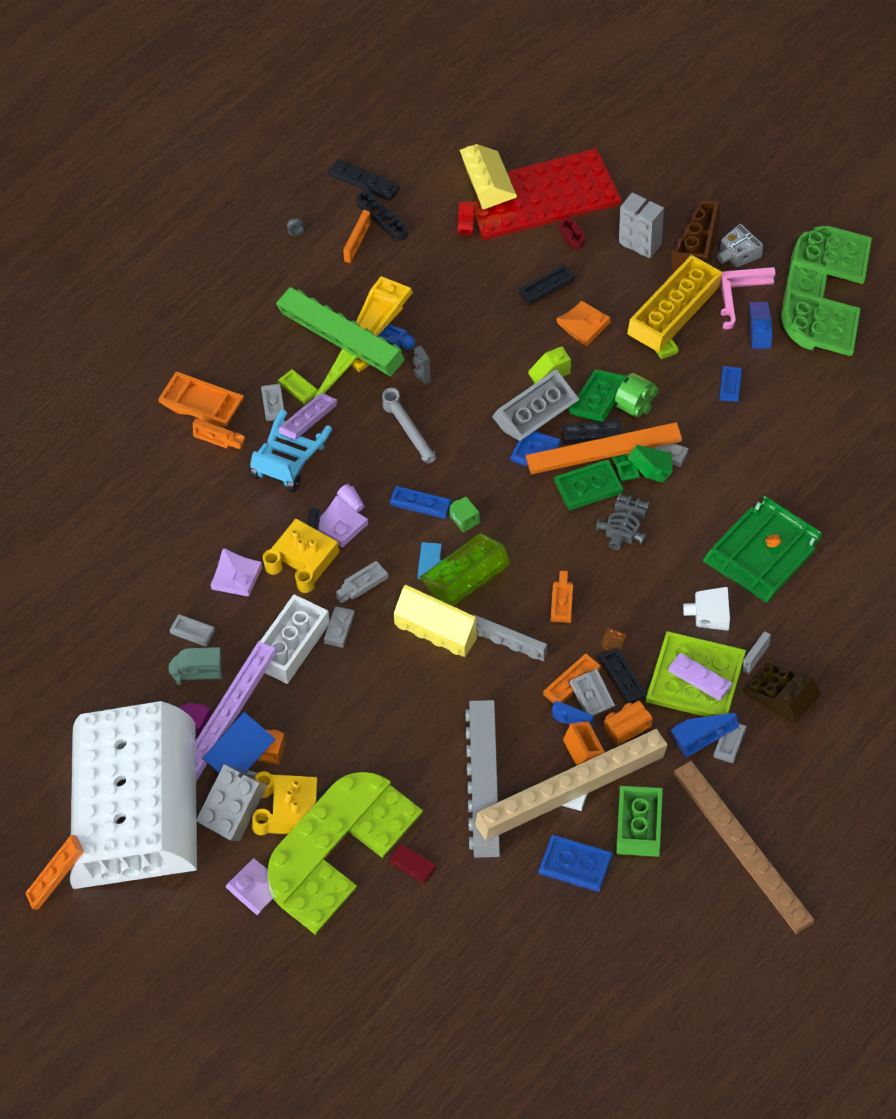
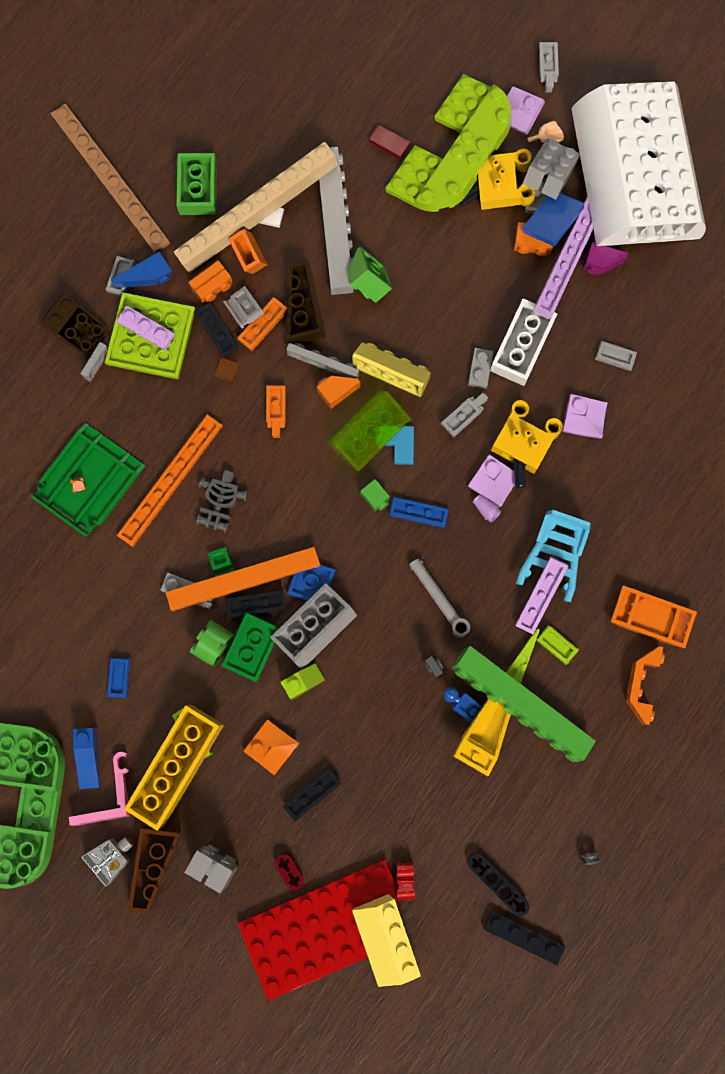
camera: 175 degrees right, 25 degrees up
(54, 872) = (692, 89): orange tile -> none
(196, 664) = (605, 313): sand green piece -> none
(211, 366) = (641, 710): none -> orange slope
(212, 936) = (548, 64): none -> light grey hinge
(217, 435) = (627, 574): orange hinge -> none
(224, 856) = (548, 130): none -> light nougat piece
(272, 401) = (580, 620): light grey plate -> none
(357, 236) = (521, 848): orange tile -> none
(450, 710) = (368, 275): none -> bright green slope
(497, 609) = (336, 389): none -> orange slope
(524, 686) = (304, 312): none -> dark brown wedge
(567, 714) = (265, 287): blue plate -> none
(575, 863) = (251, 153): blue tile -> none
(588, 485) = (257, 539): green plate -> none
(652, 462) = (192, 563): green slope -> none
(676, 545) = (169, 480): none -> orange tile
(710, 609) = (137, 405): white torso -> none

